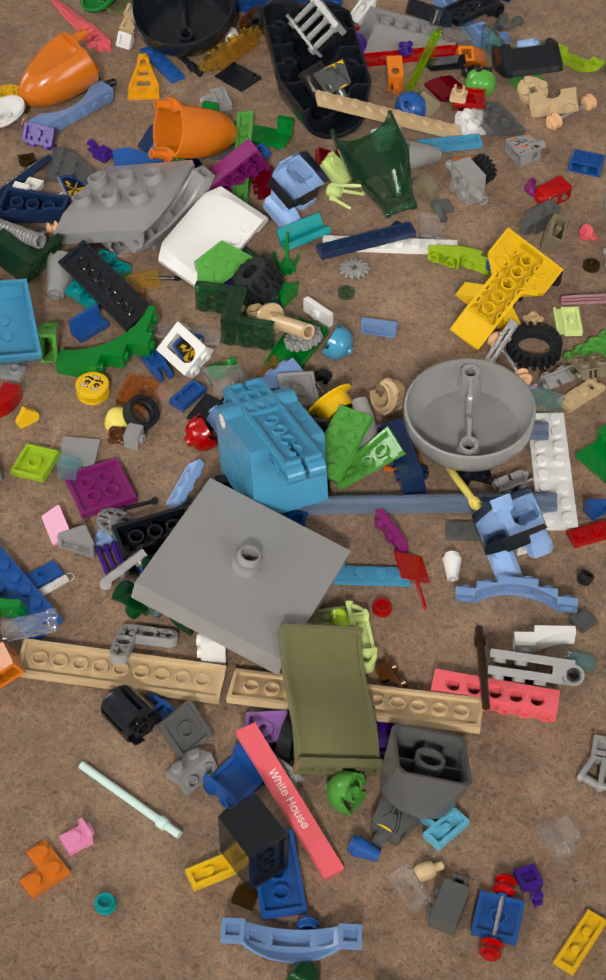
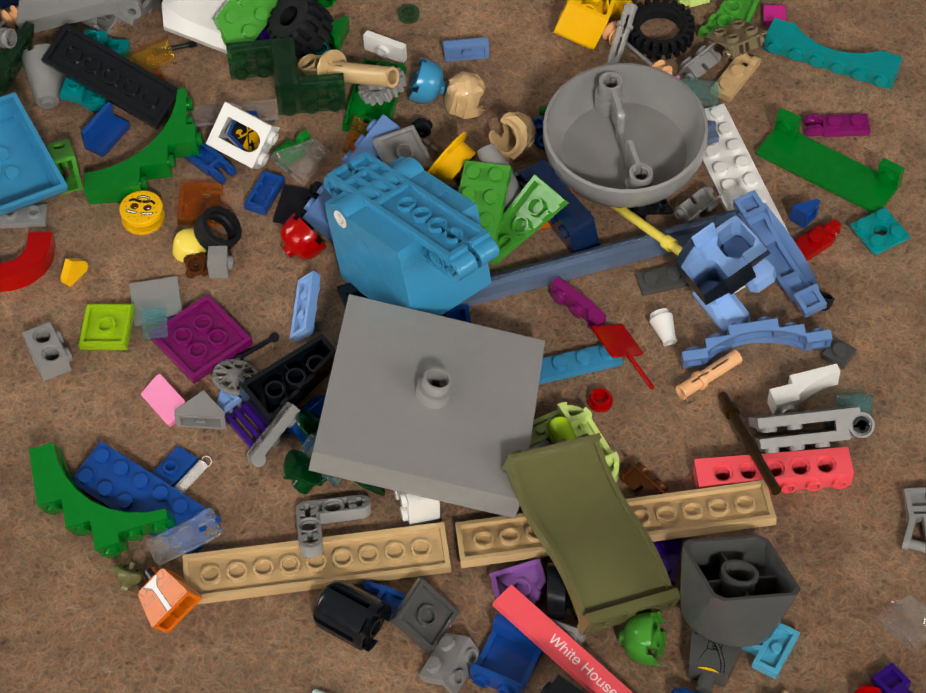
camera: 15 degrees left, 5 degrees up
(362, 359) = (464, 95): none -> tan helmet
(465, 612) = (702, 378): none -> light nougat pin
(563, 532) = (790, 265): none -> medium blue piece

